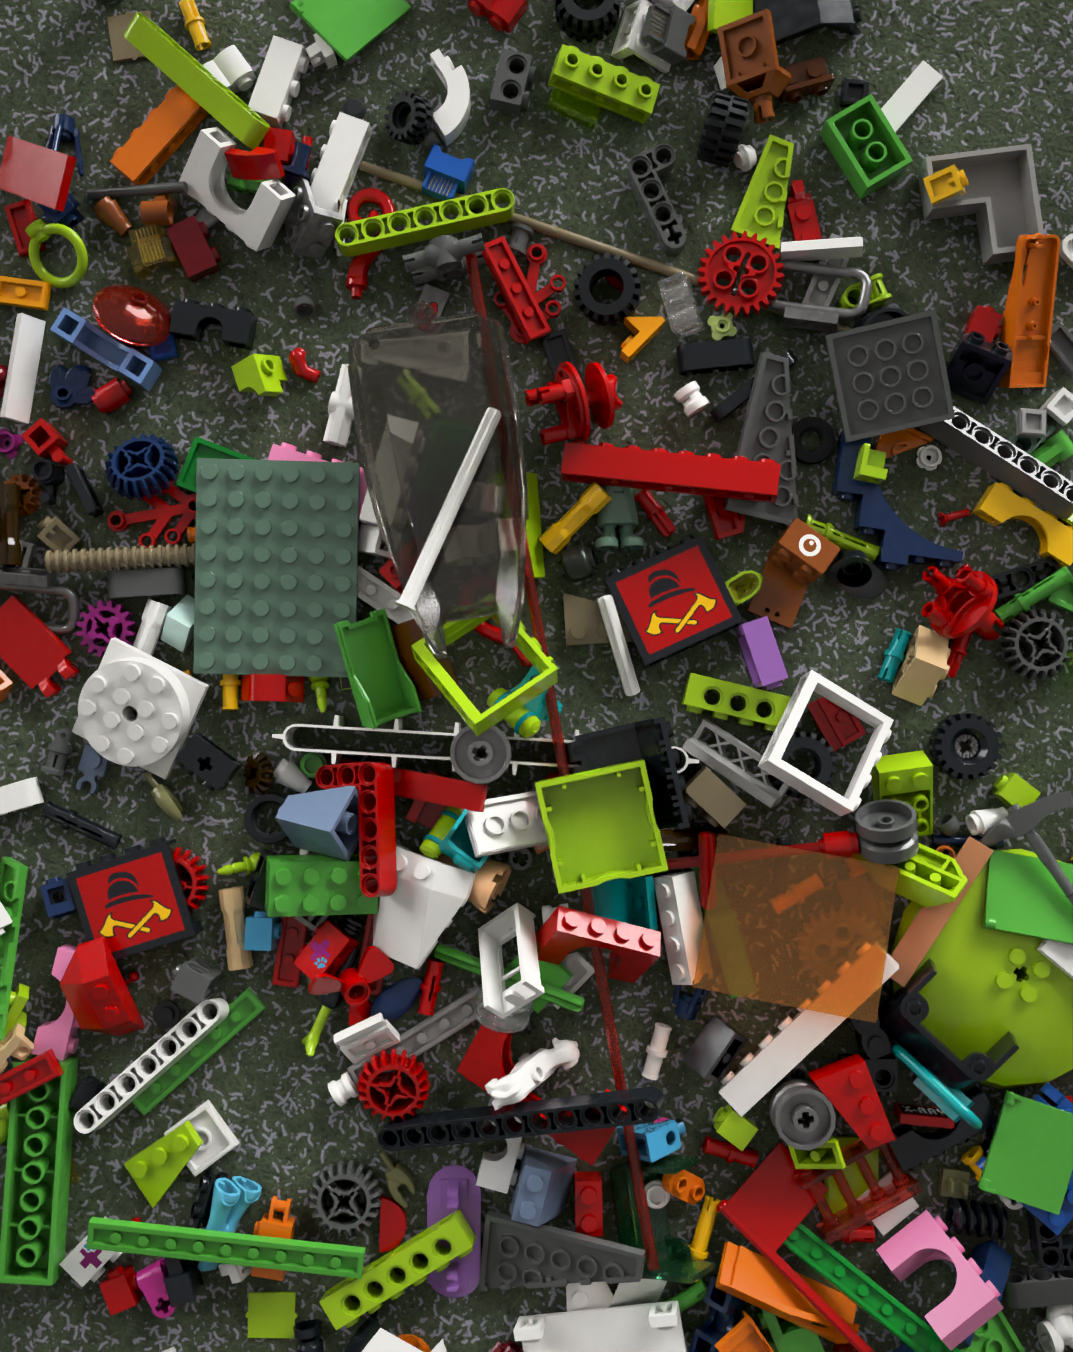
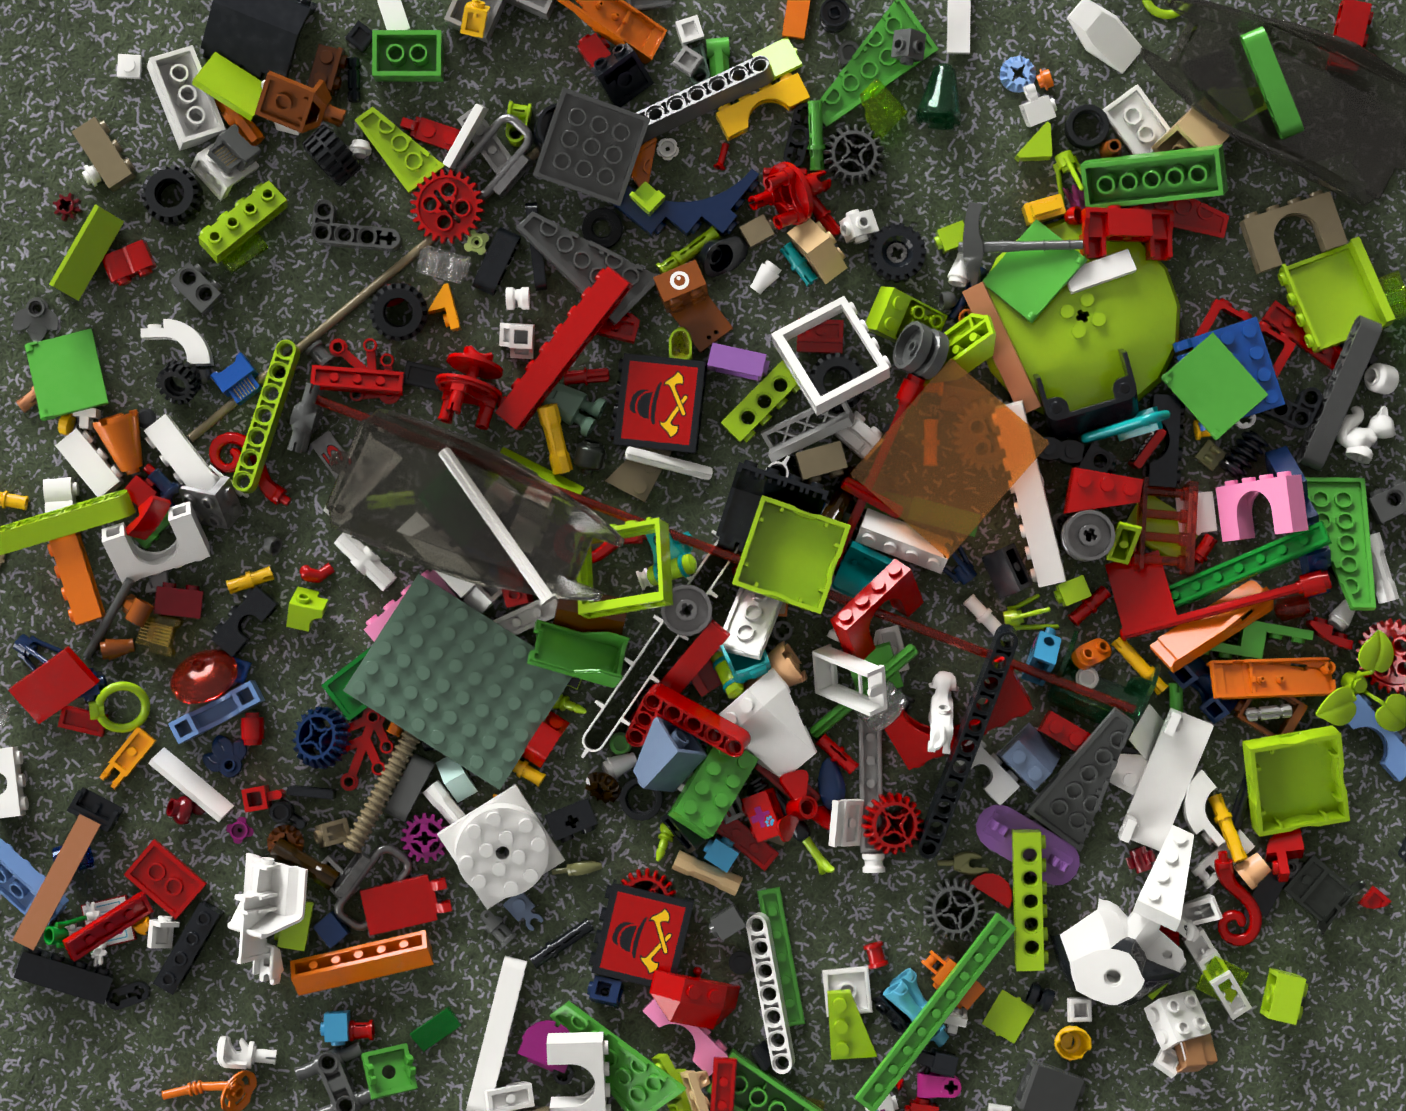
camera: 55 degrees left, 0 degrees up
(253, 1146) = (875, 954): none -> red bush
(257, 305) = (250, 580): none -> yellow pin
(303, 35) = (66, 424): none -> yellow tile
(318, 99) = (122, 440): none -> orange cone
(489, 687) = (642, 577): none -> white bush
(652, 424) = (518, 338): none -> white brick
(672, 1084) = (1015, 617): none -> lime plant
(759, 820) = (859, 436): none -> white brick
(808, 111) = (353, 64): none -> black axle
(863, 630) = (765, 276): none -> white cone
(902, 595) = (757, 231): none -> dark tan brick
(970, 692) = (858, 226): none -> white brick

